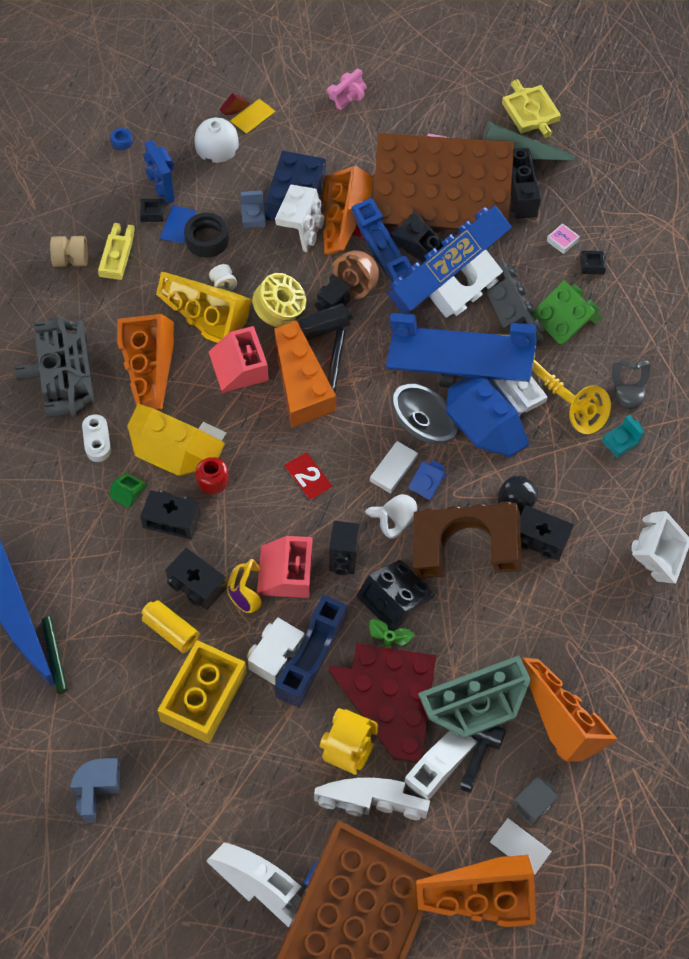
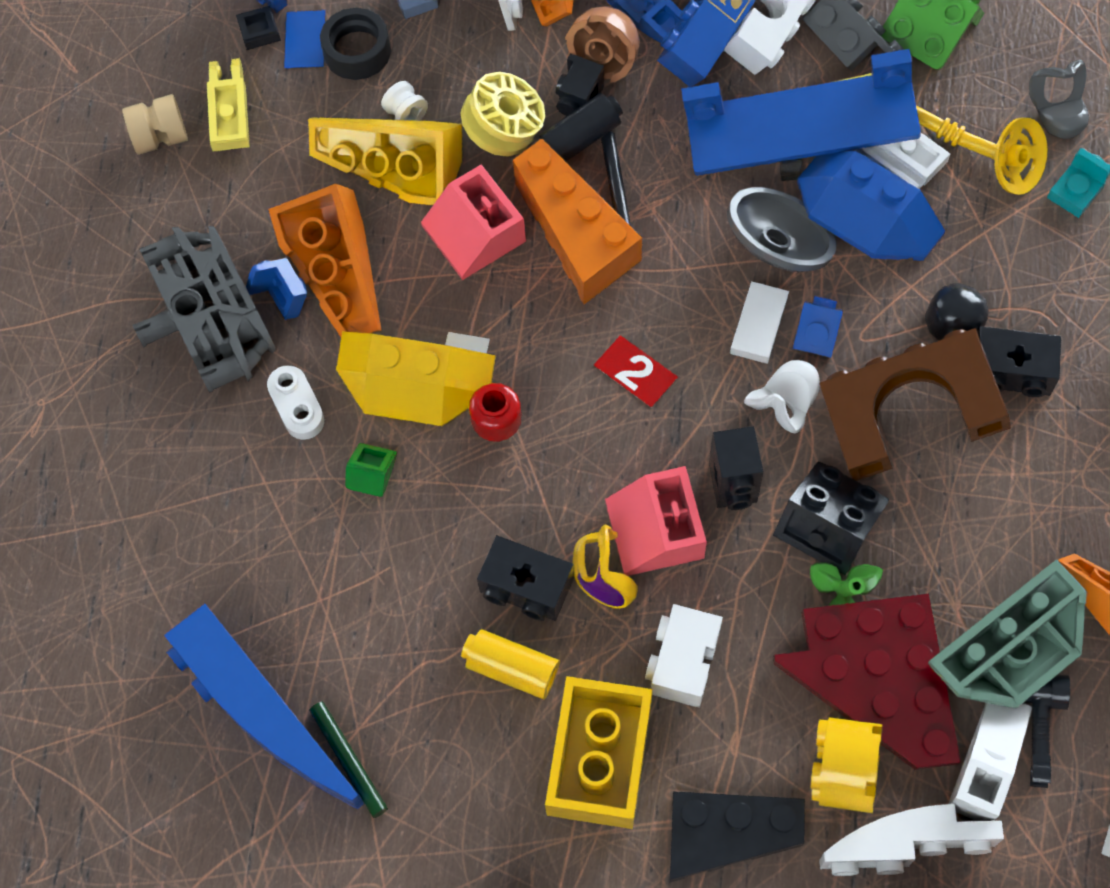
camera: 10 degrees left, 5 degrees up
(112, 365) = (281, 282): none -> blue bracket
(170, 514) = (431, 484): black brick -> none
(267, 760) = (729, 829): none -> black wing
(303, 668) = (741, 641): dark blue arch -> none

